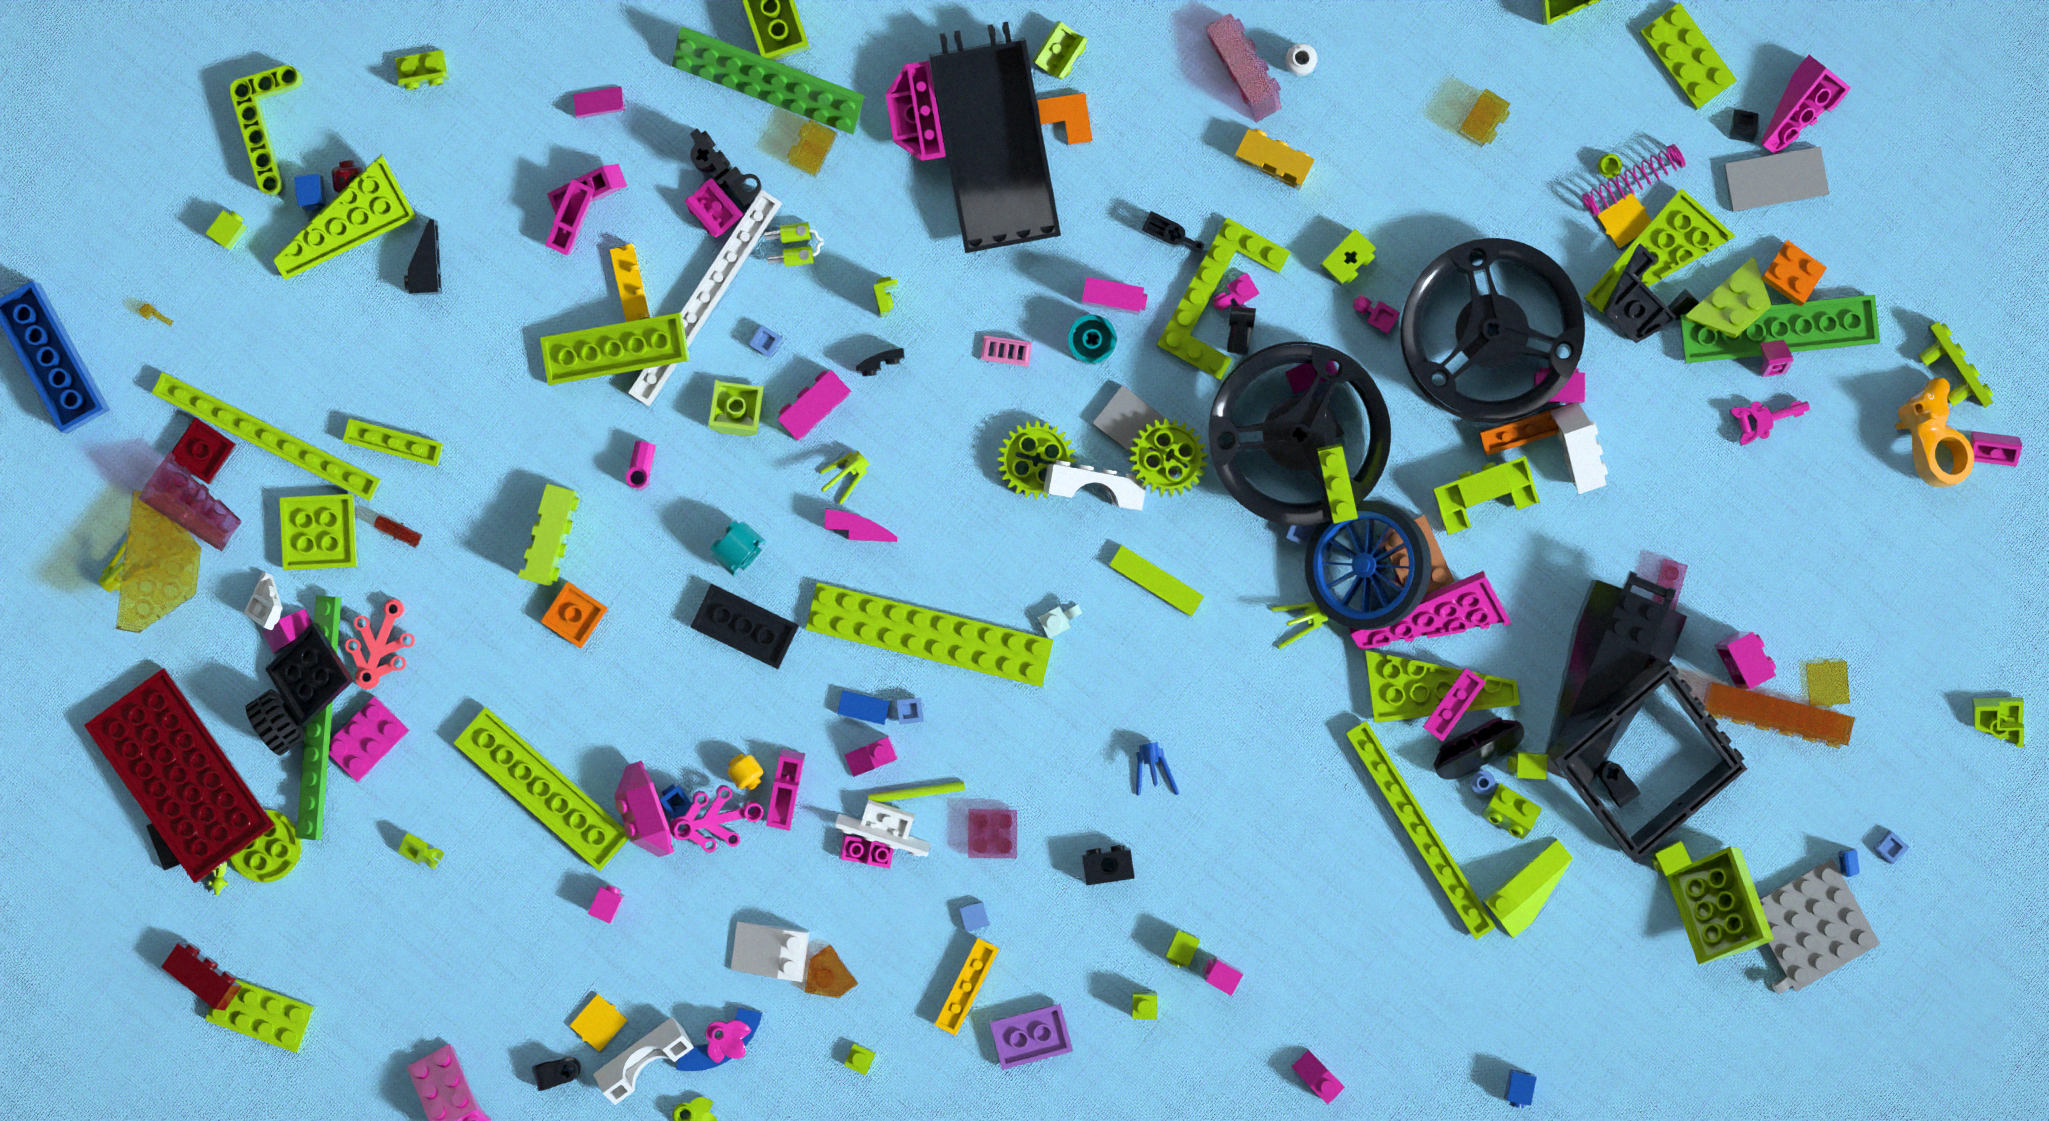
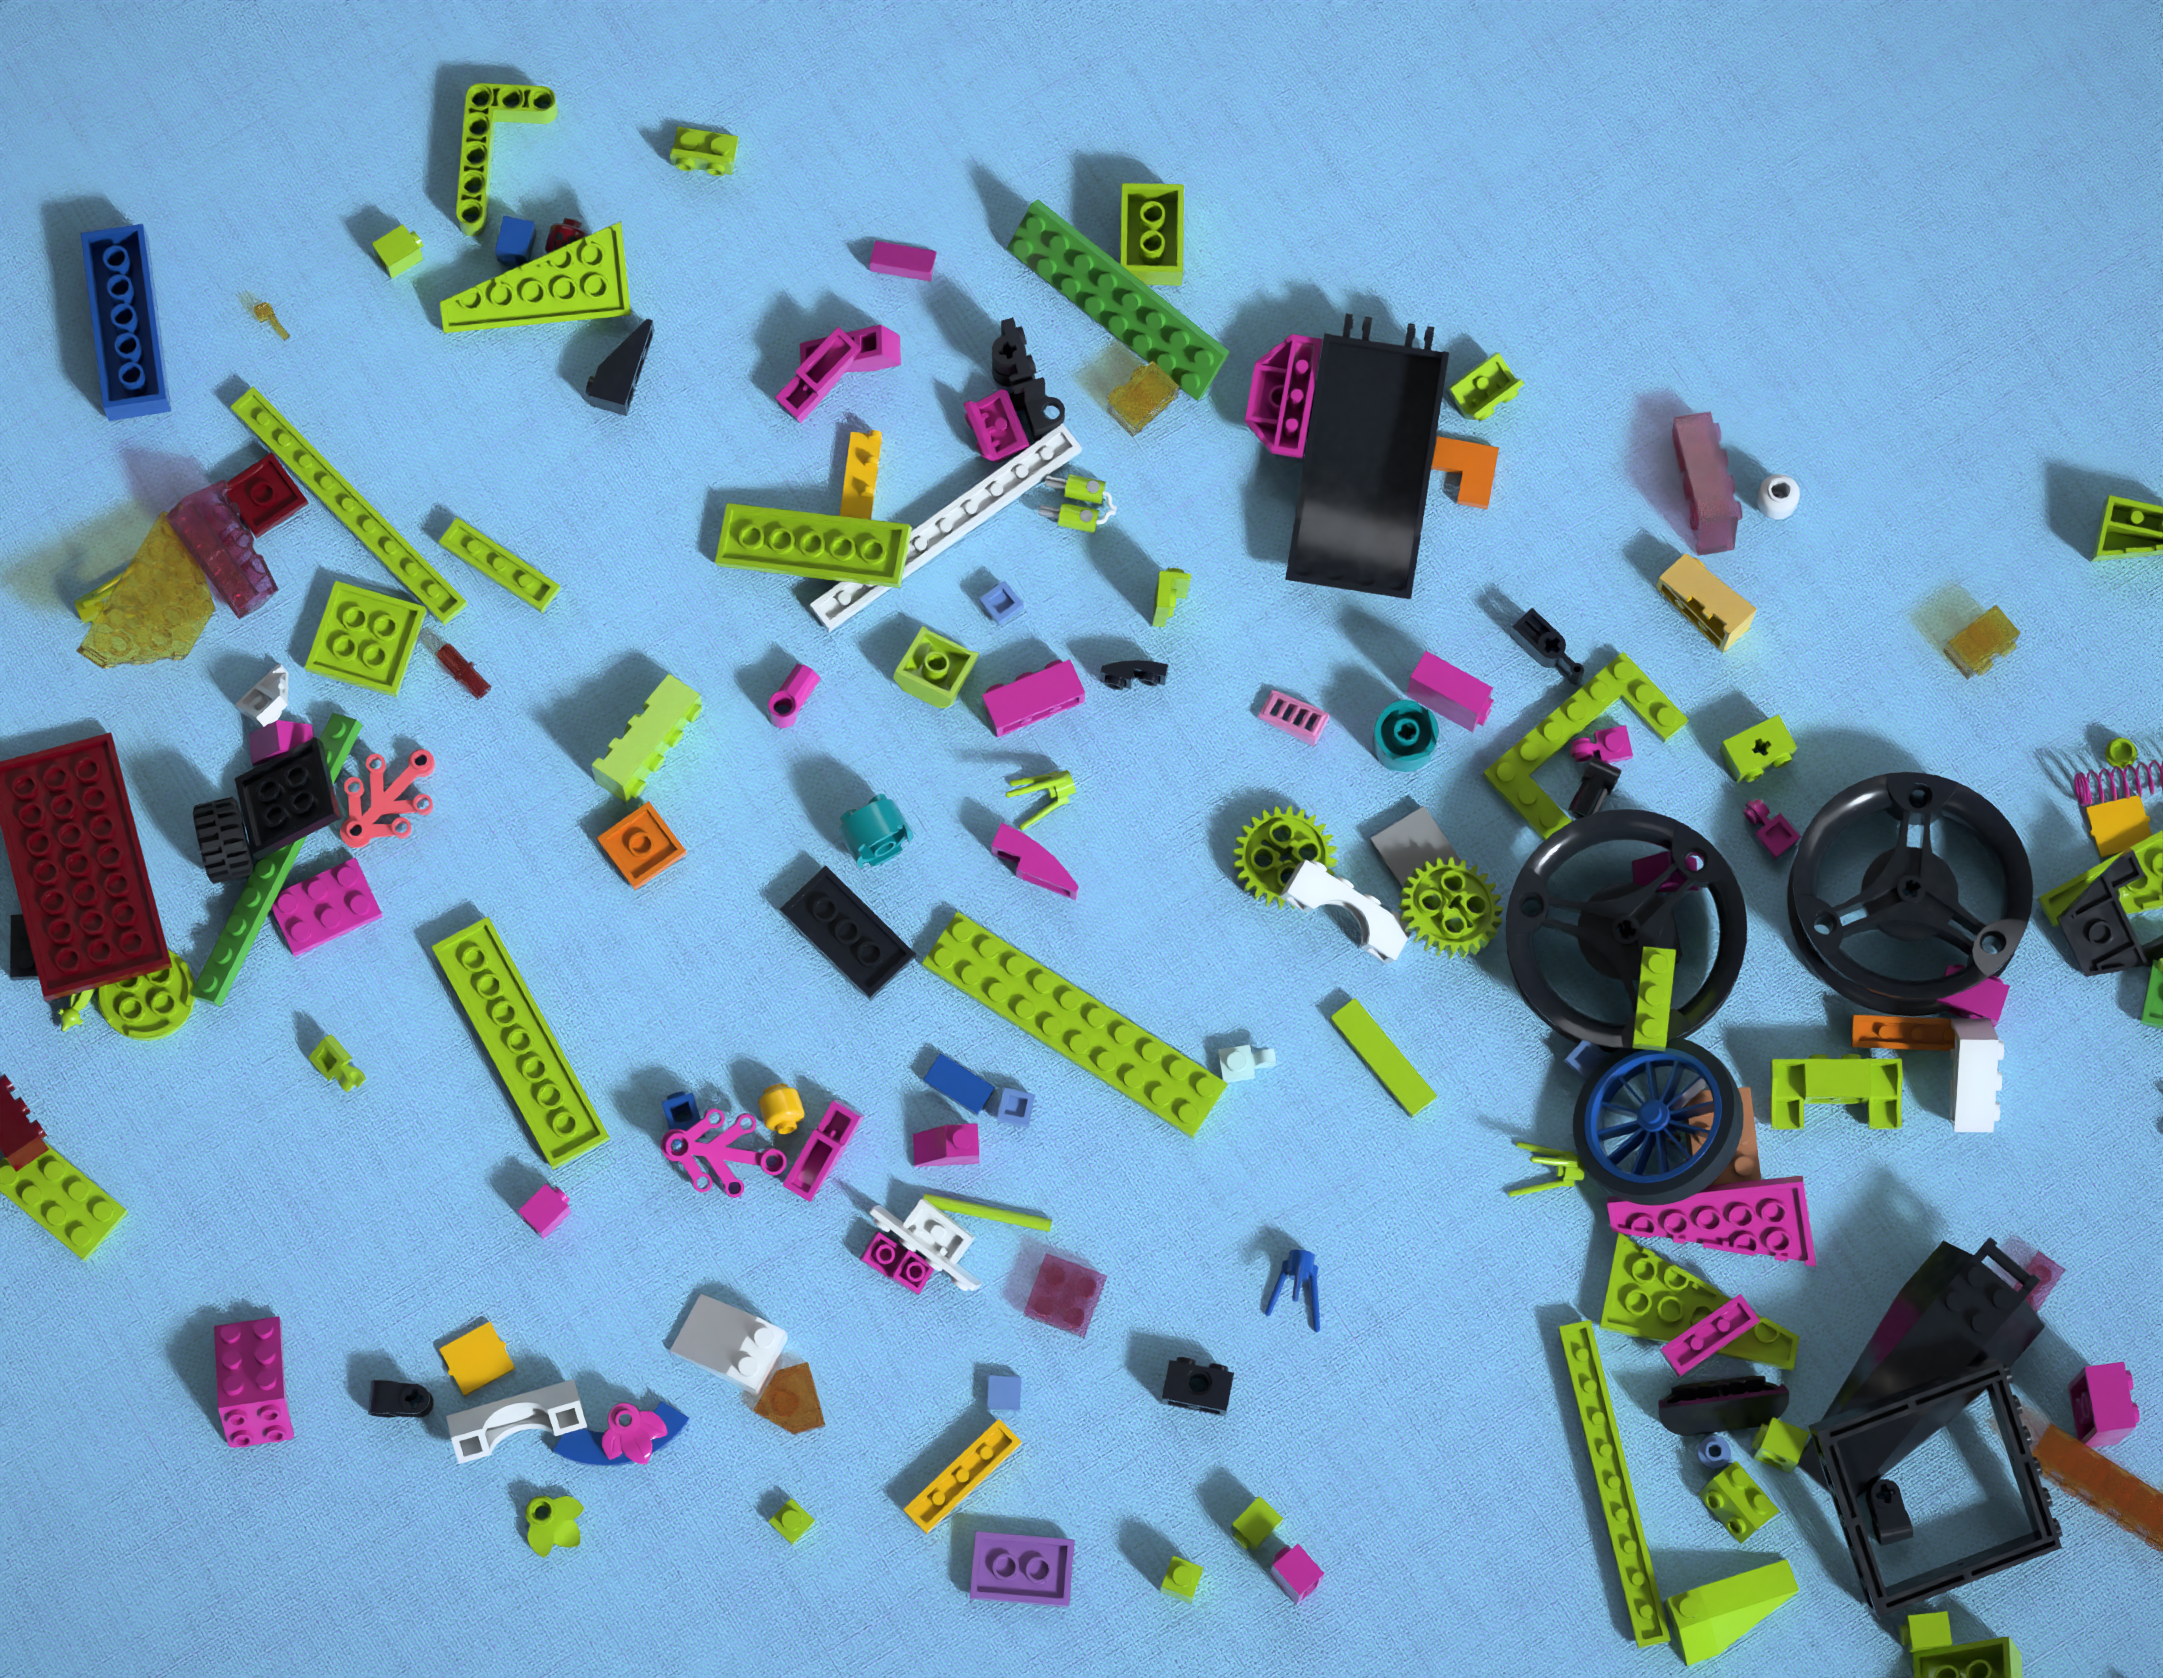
camera: 15 degrees right, 15 degrees down
(642, 811) = (635, 1113): dark pink wedge -> none

